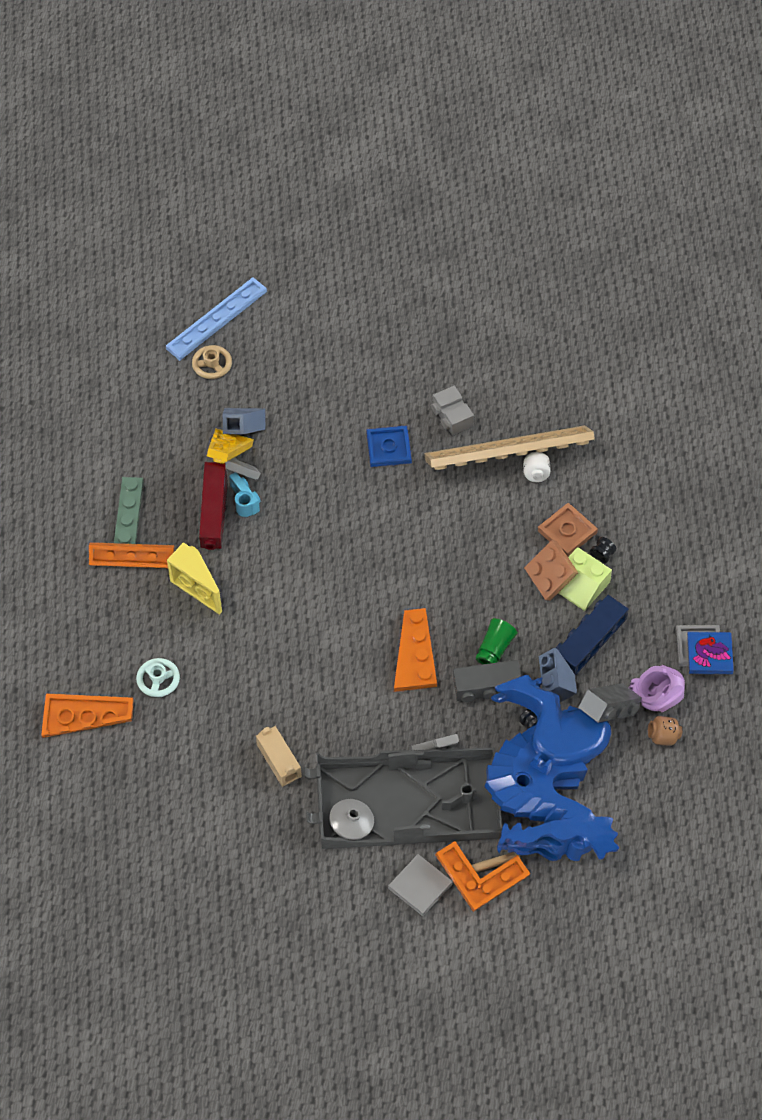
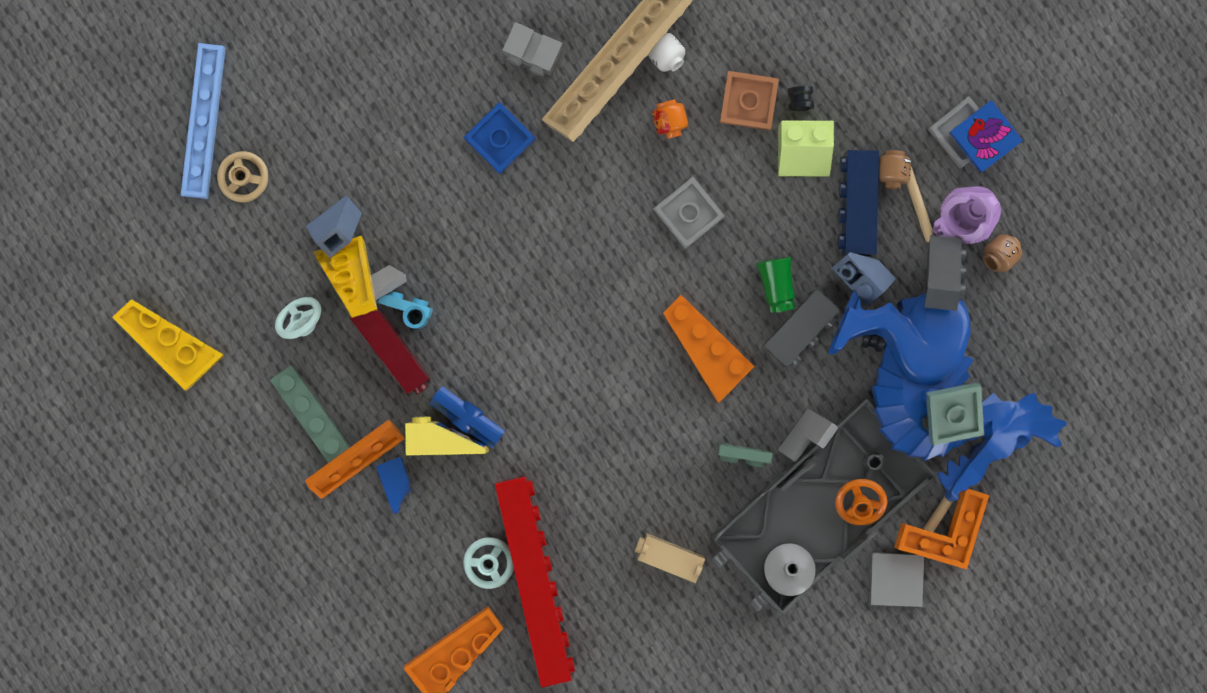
camera: 45 degrees left, 30 degrees up
(81, 419) = (172, 348): none -> yellow wing
(143, 586) = (394, 481): none -> blue slope
(172, 455) = (301, 322): none -> light aqua piece
(176, 706) = (534, 582): none -> red brick
(224, 580) = (467, 417): none -> blue piece
(381, 720) = (753, 456): none -> sand green plate
(430, 803) = (863, 514): none -> orange piece
(472, 567) = (689, 212): none -> light grey tile
(506, 503) = (670, 118): none -> orange head
(543, 778) = (955, 413): none -> sand green plate
(551, 570) = (772, 163): nougat plate -> none
(630, 629) = (894, 169): none -> medium nougat head
(633, 661) = (919, 207): none -> tan bar

